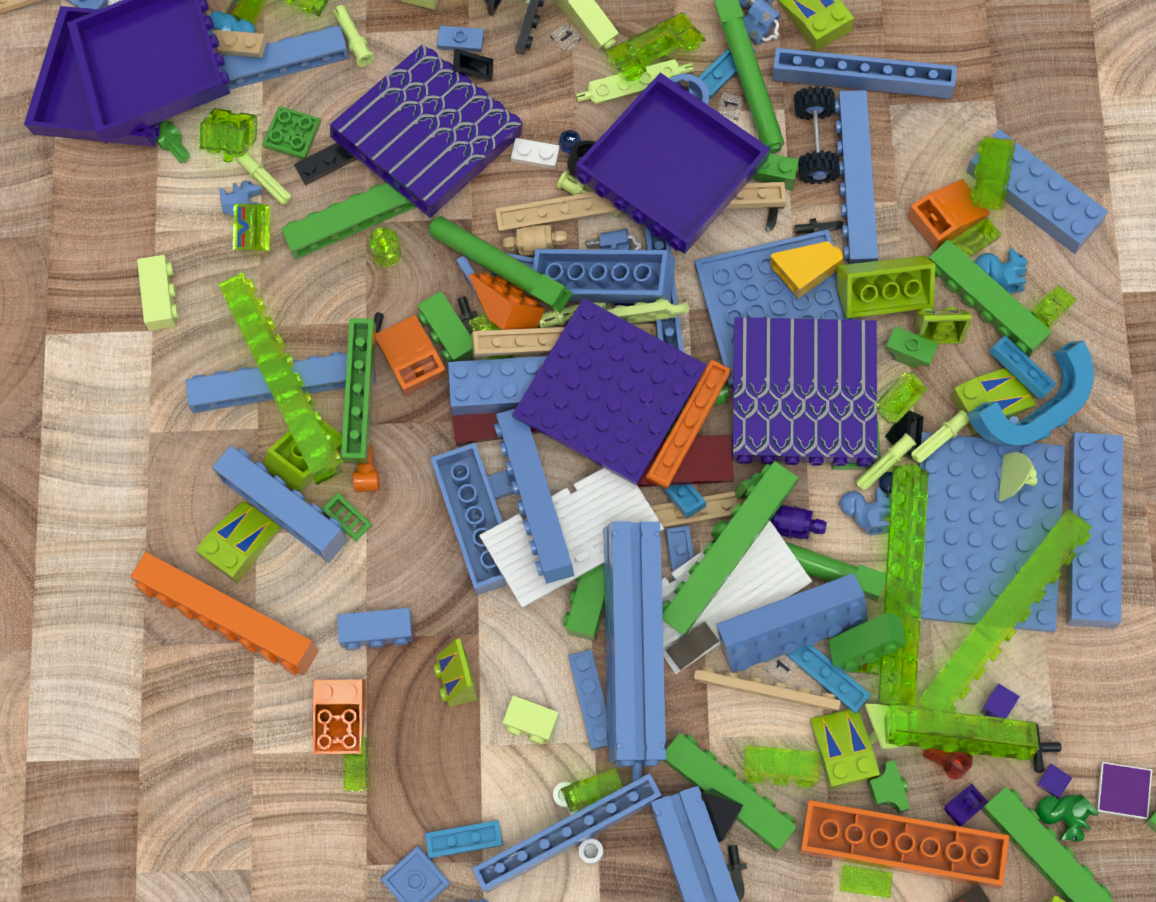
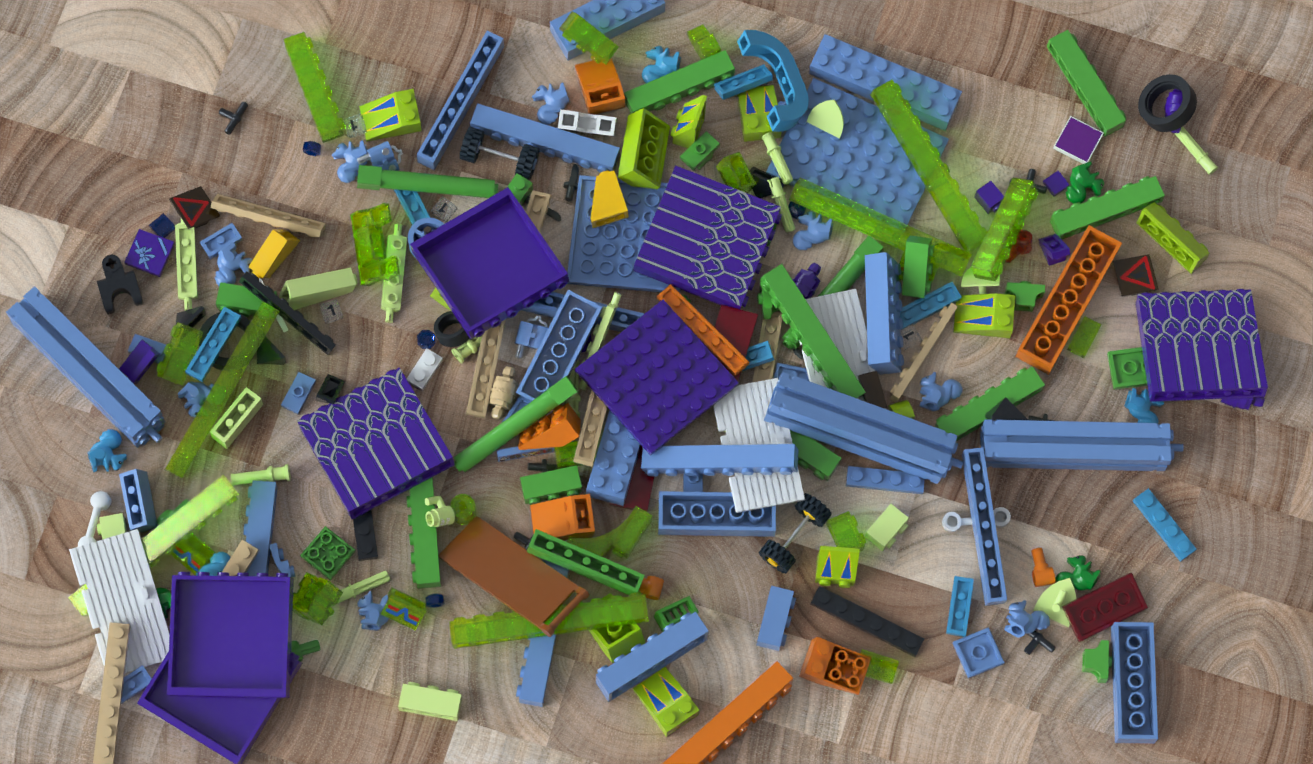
camera: 80 degrees left, 0 degrees up
(255, 95) = (282, 566): none -> medium blue slope
(273, 256) = (434, 600): none -> clear blue tile
(317, 321) = (512, 575): none -> dark orange flag
(364, 223) = (439, 516): none -> yellowish green piece
(409, 737) = (867, 621): none -> black plate
(410, 427) = (620, 540): none -> clear neon green arch
(448, 604) = (813, 512): none -> black axle
(505, 675) = (845, 532): none -> clear neon green brick
(590, 790) = (956, 498): clear neon green arch -> none
(681, 689) = (902, 408): none -> lime brick
(719, 728) = (938, 395): none -> medium blue animal
(781, 766) = (983, 363): clear neon green brick -> none
(895, 213) = (587, 123): none -> white arch
(908, 173) = (554, 101): none -> medium blue animal
(977, 238) = (626, 73): clear neon green tile -> none

